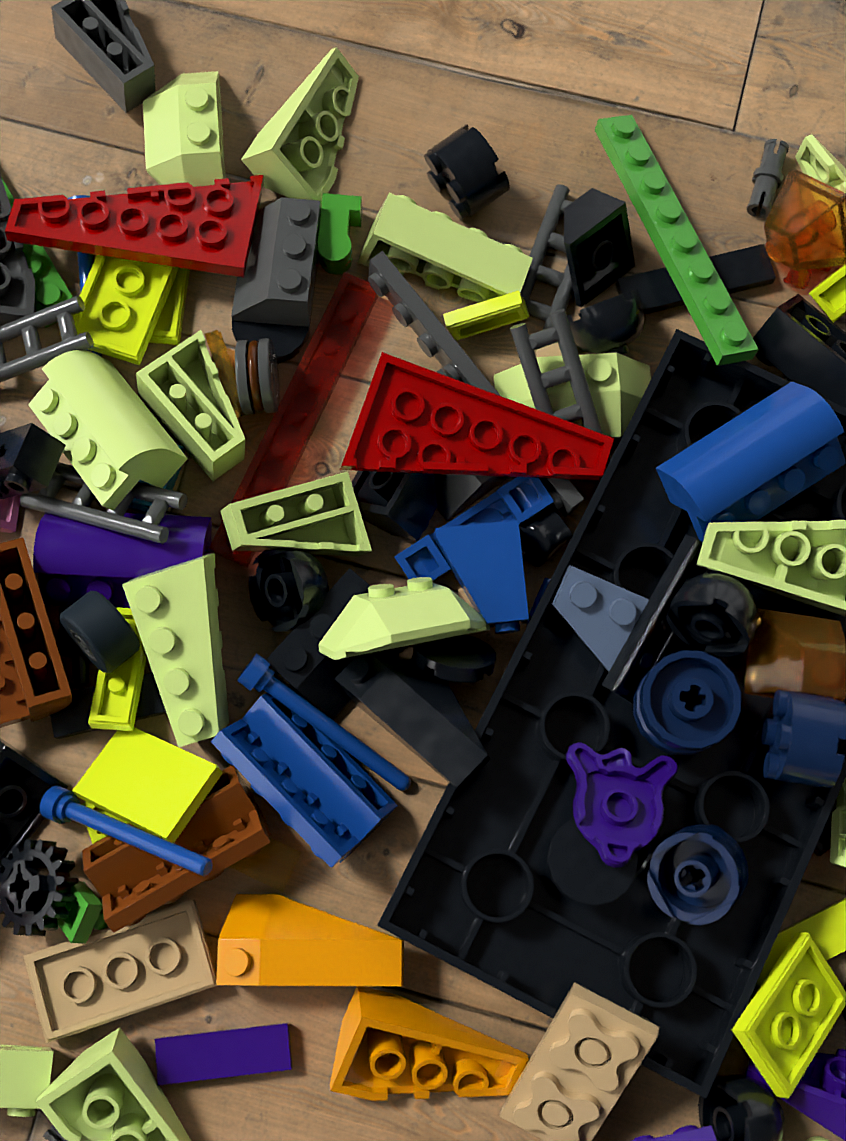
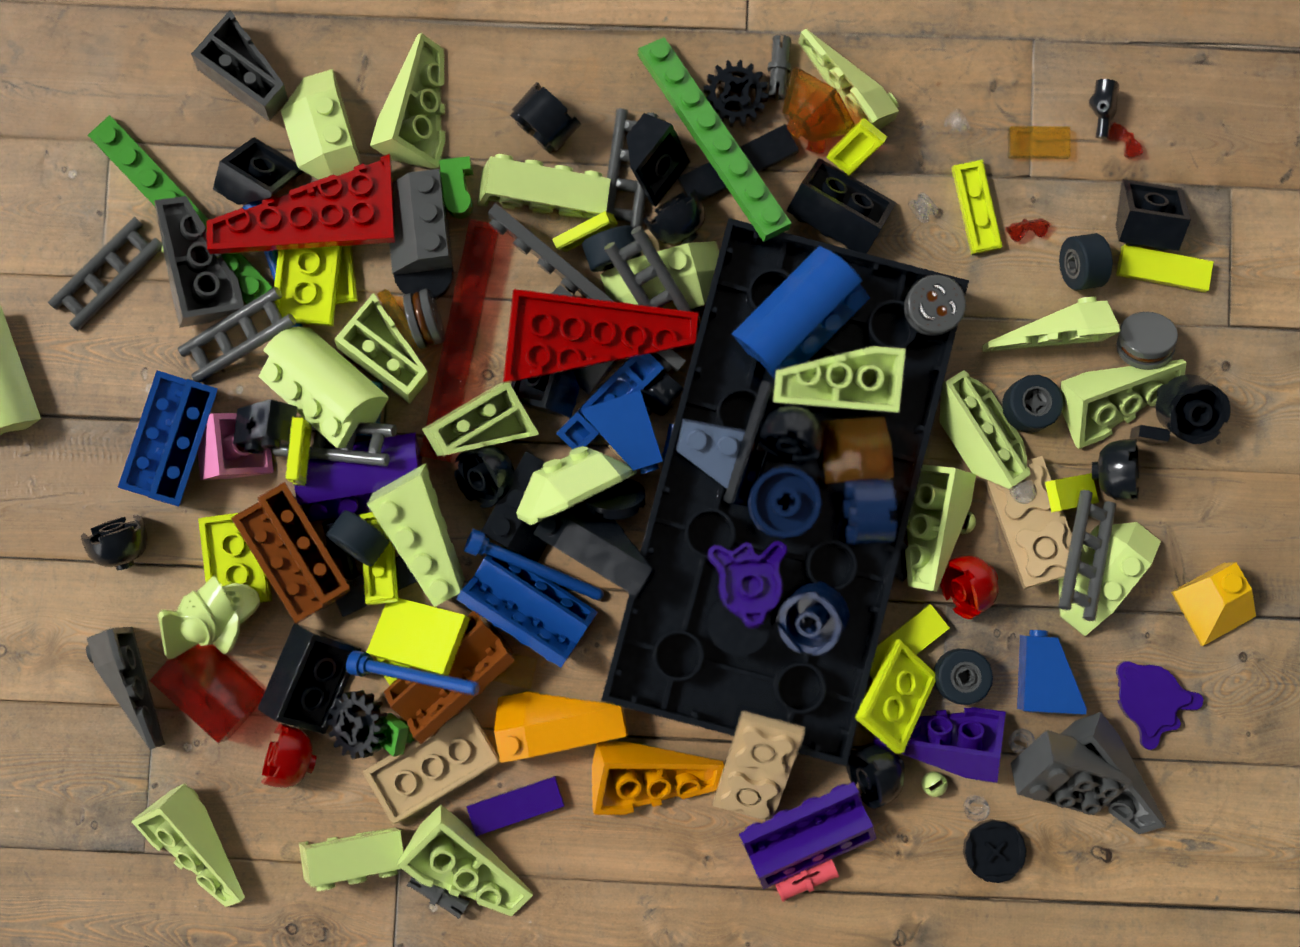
camera: 10 degrees left, 10 degrees up
(51, 501) = (298, 451): none -> neon yellow tile
(88, 162) = (254, 173): none -> black slope
(497, 341) = (594, 247): none -> black wheel
(709, 194) = (728, 82): none -> black gear

